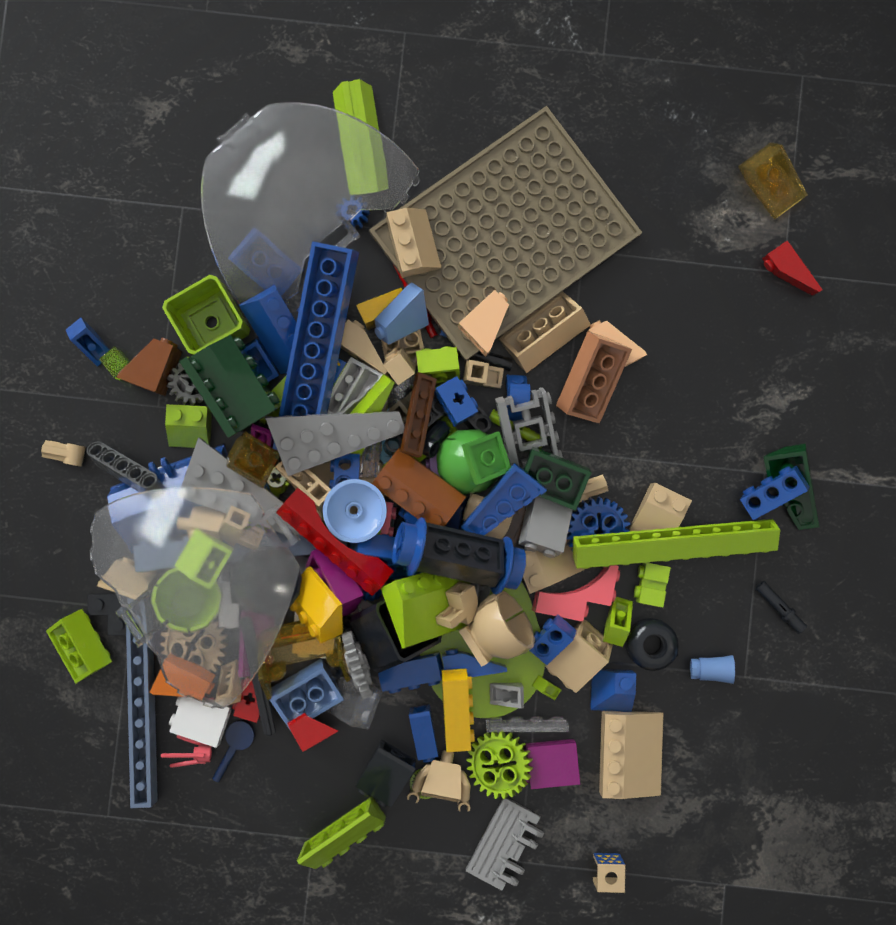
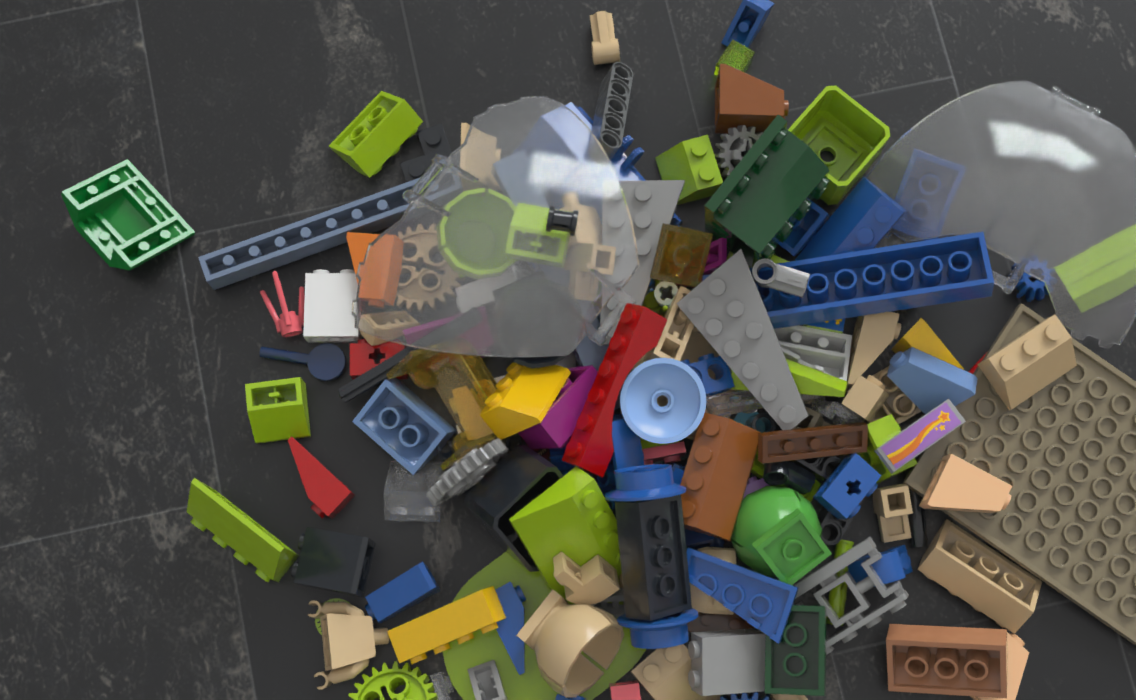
camera: 75 degrees right, 10 degrees down
(78, 852) = (124, 216): none -> green slope
(202, 542) = (562, 221): none -> black bush
(263, 781) = (278, 409): none -> lime slope
(296, 394) = (783, 278): none -> light grey piece
(309, 731) = (360, 443): red slope -> none
(326, 767) = (319, 483): none -> red slope
(412, 673) = (474, 550): blue brick -> none
(439, 339) = (920, 436): none -> slope

